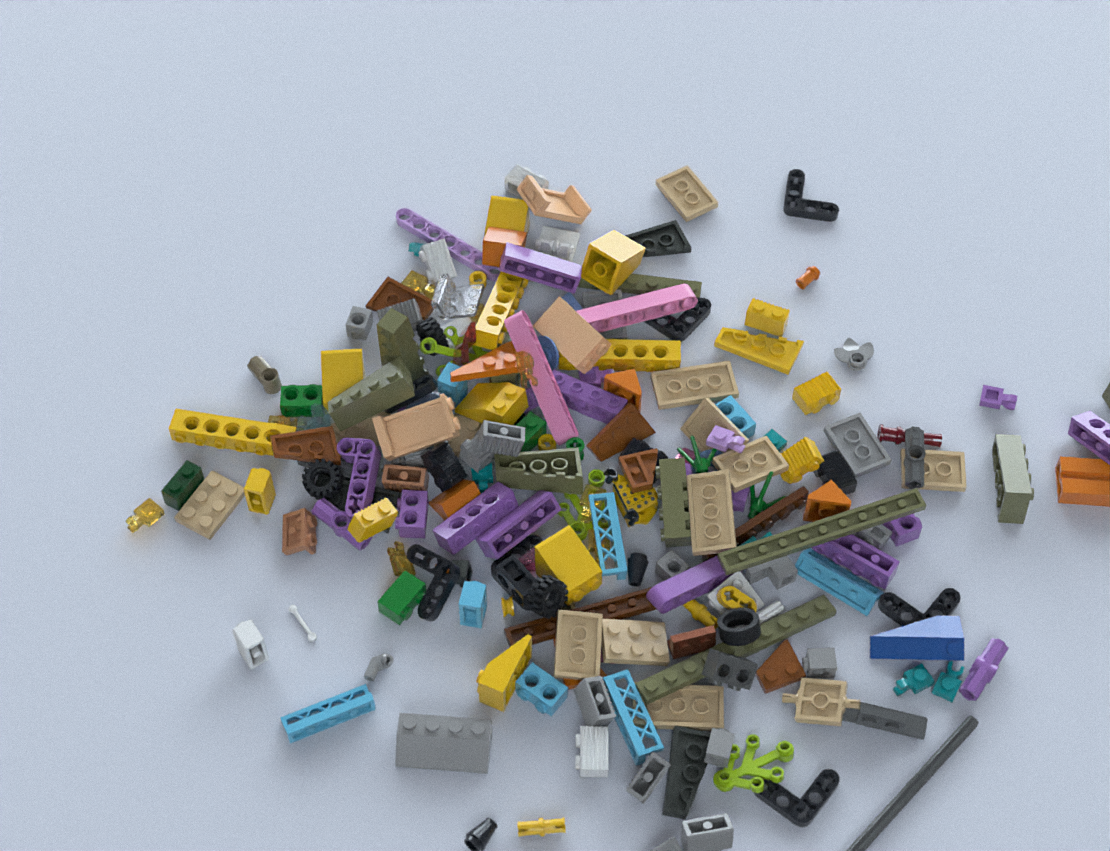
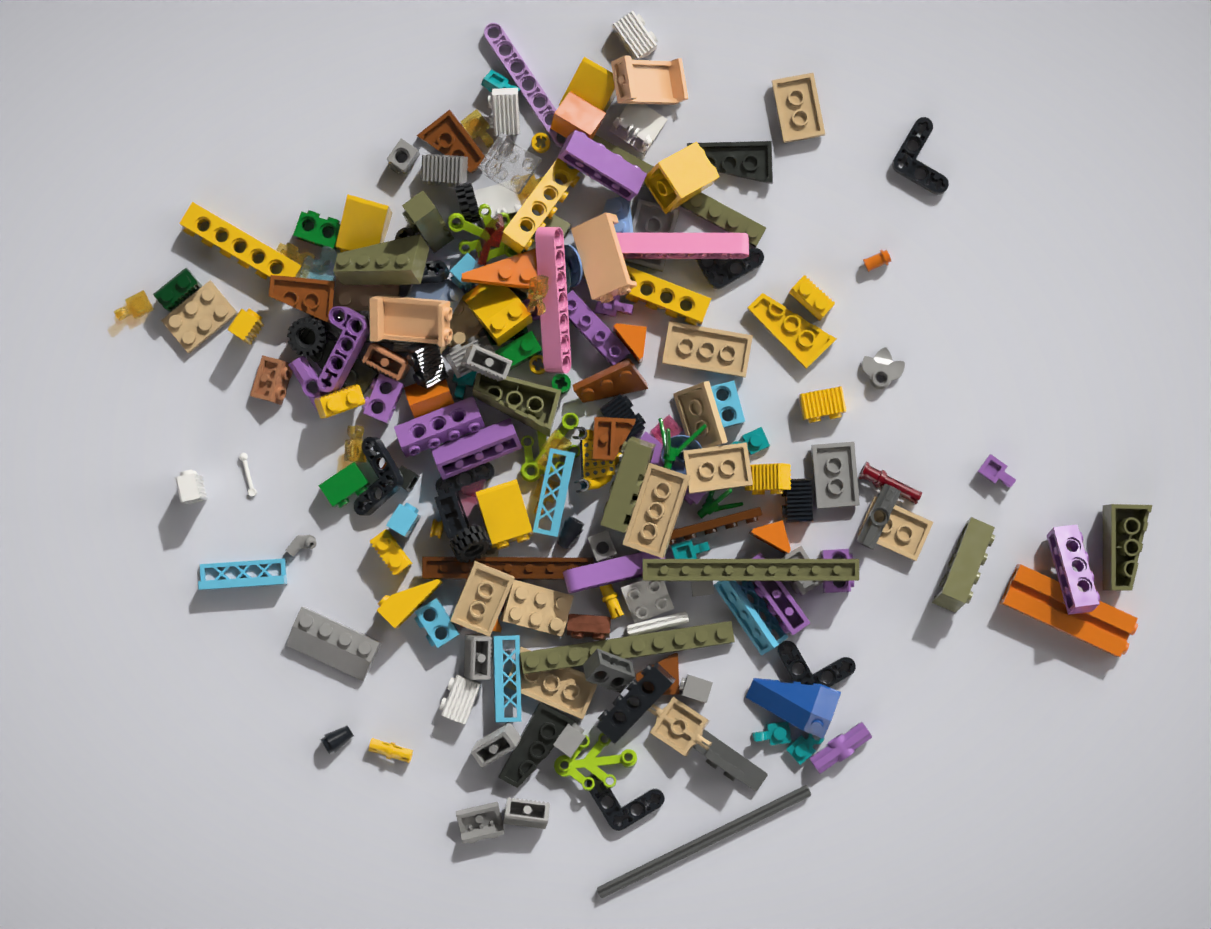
camera: 20 degrees right, 30 degrees up
(265, 374) = (291, 184): dark tan piece -> none
(470, 640) = (391, 552): none -> yellow brick
(723, 439) = (700, 435): lavender plate -> none
(737, 617) = (635, 648): black tyre -> none
(738, 596) = (641, 608): yellow beam -> none
(761, 725) = (616, 729): none -> black brick

